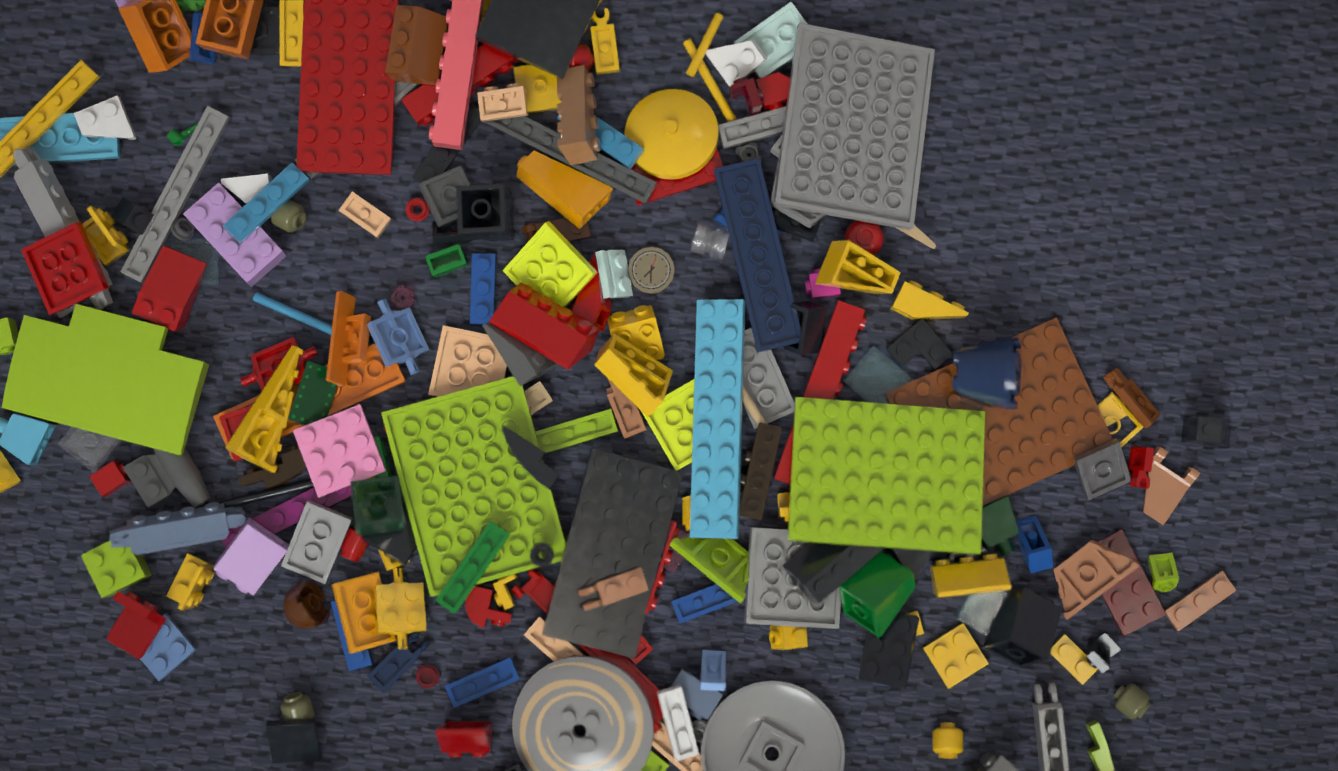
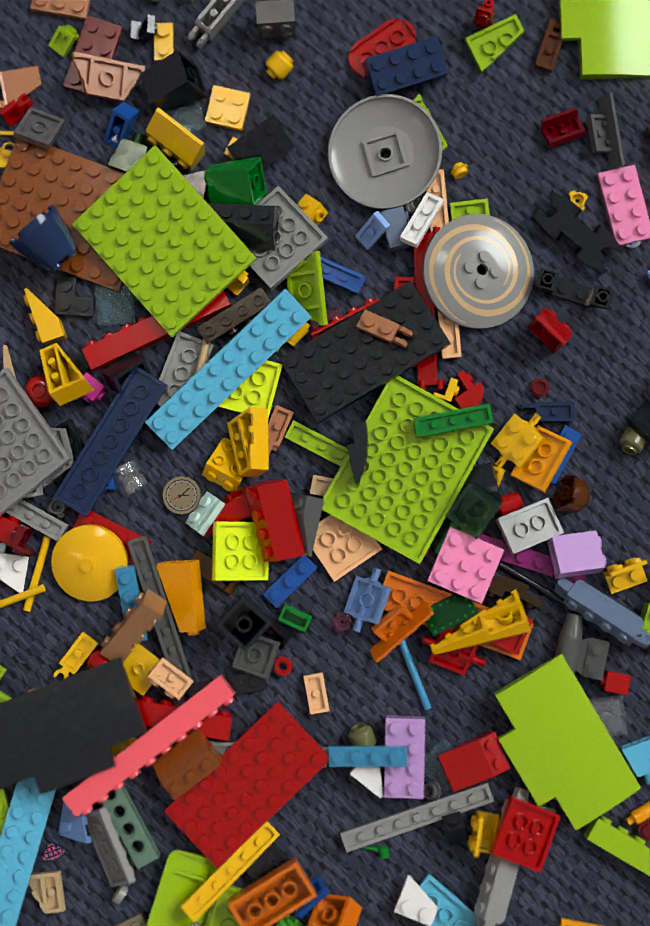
camera: 135 degrees left, 0 degrees up
(482, 682) = (511, 353): blue plate -> none
(535, 558) = (410, 383): black cone -> none

